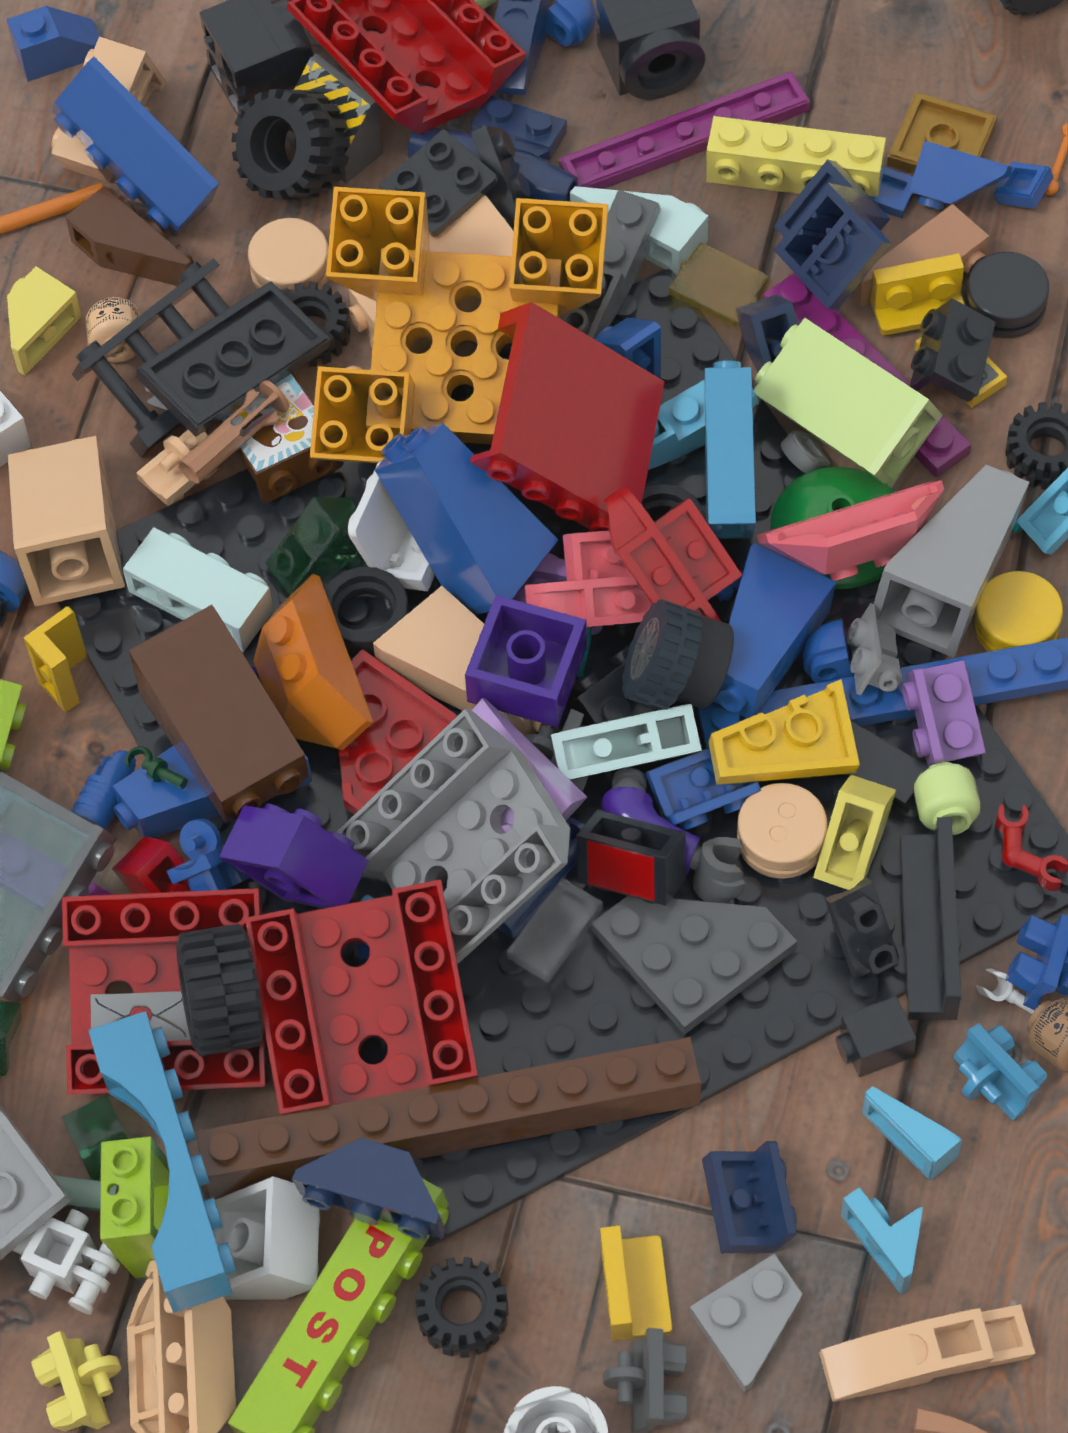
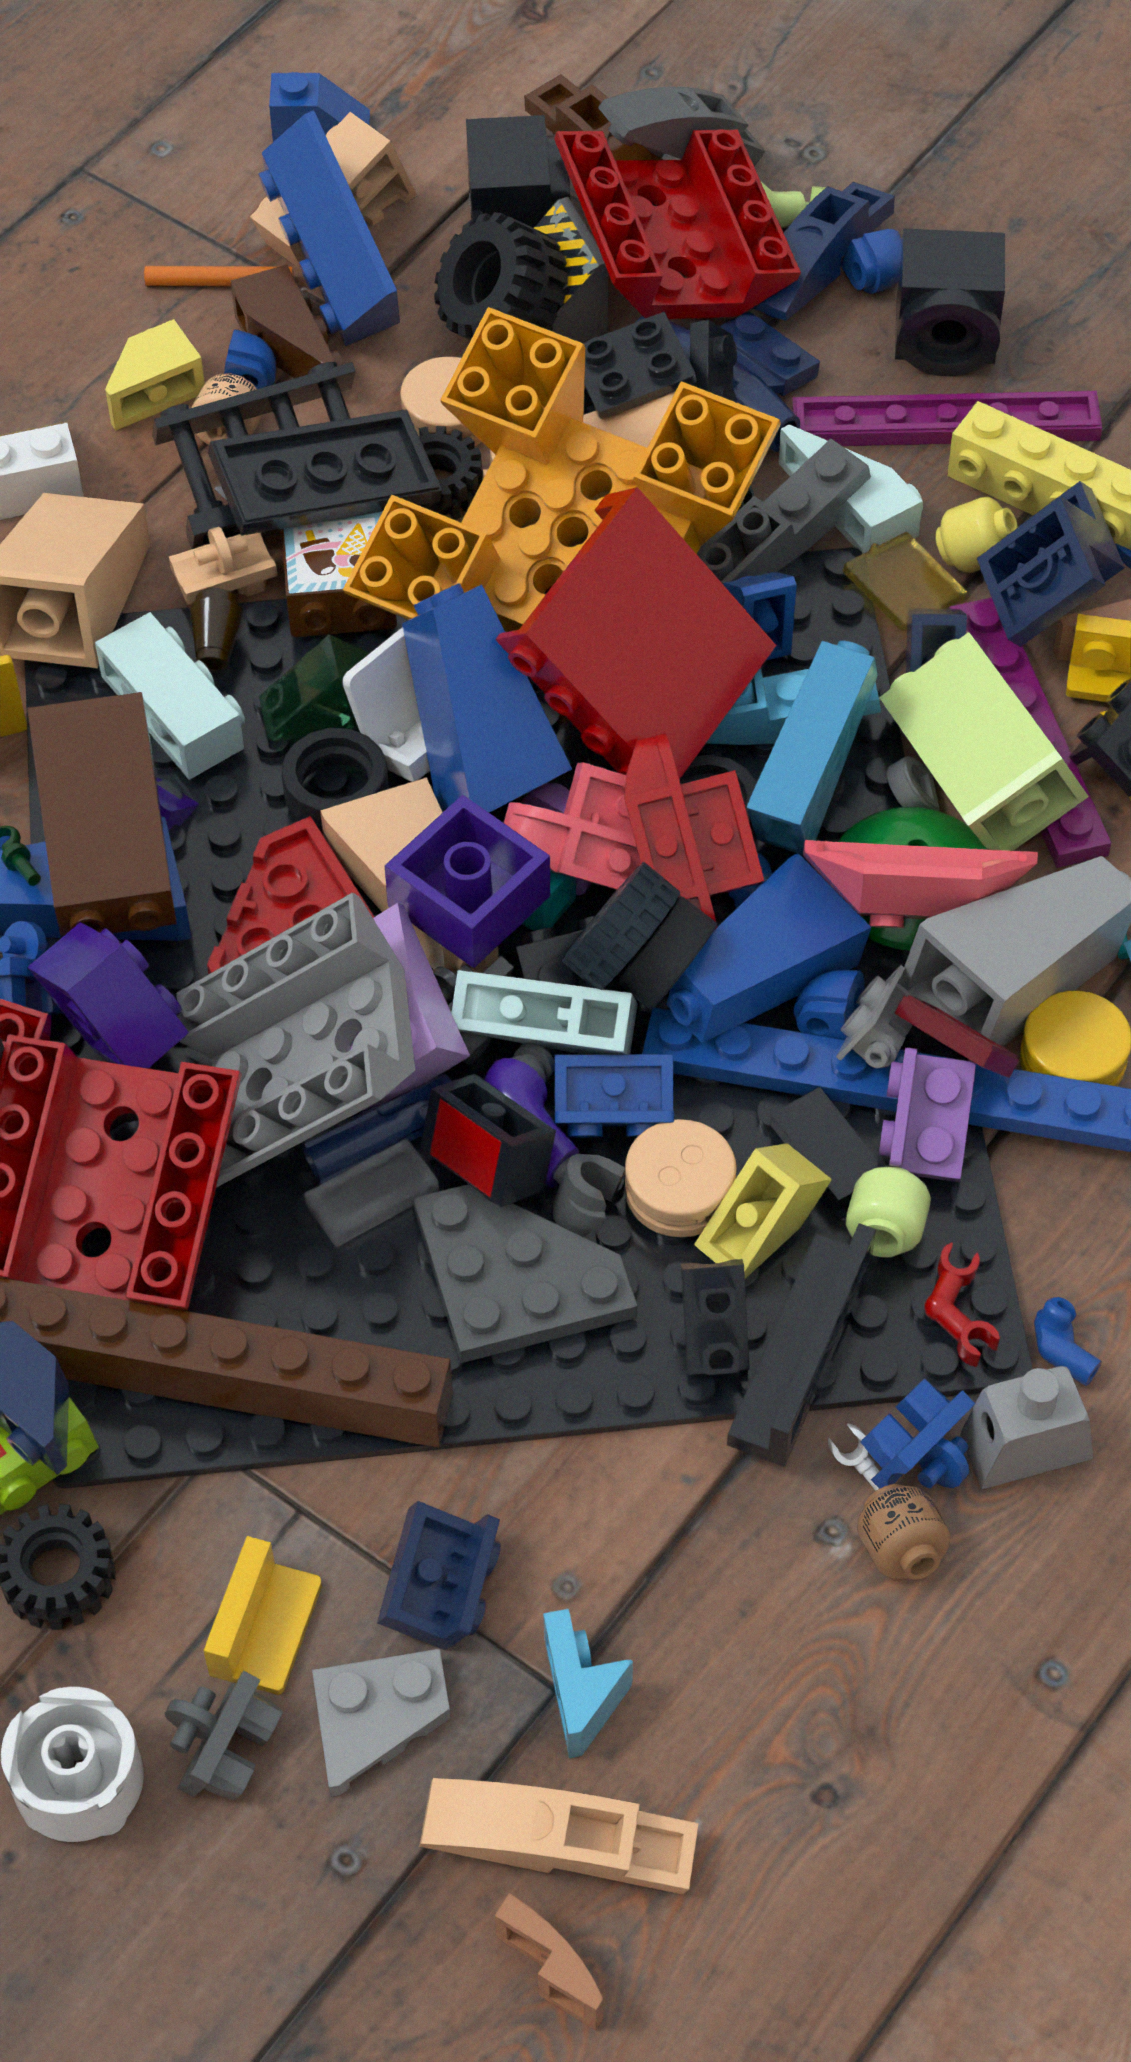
camera: 20 degrees right, 5 degrees down
(110, 278) = (251, 359): none -> blue piece
(204, 519) = (215, 627): none -> dark brown cone
(227, 438) = (275, 546): nougat piece -> none
(310, 671) = (240, 813): orange wedge -> none
(758, 227) = (971, 531): none -> light yellow head
(795, 741) = (733, 1082): yellow wing -> none
(876, 1037) = (678, 1449): black brick -> none
(917, 1137) = (675, 1588): medium azure slope -> none
(938, 643) = (957, 1035): none -> dark red tile
(994, 1073) = (796, 1544): dark azure hips -> none

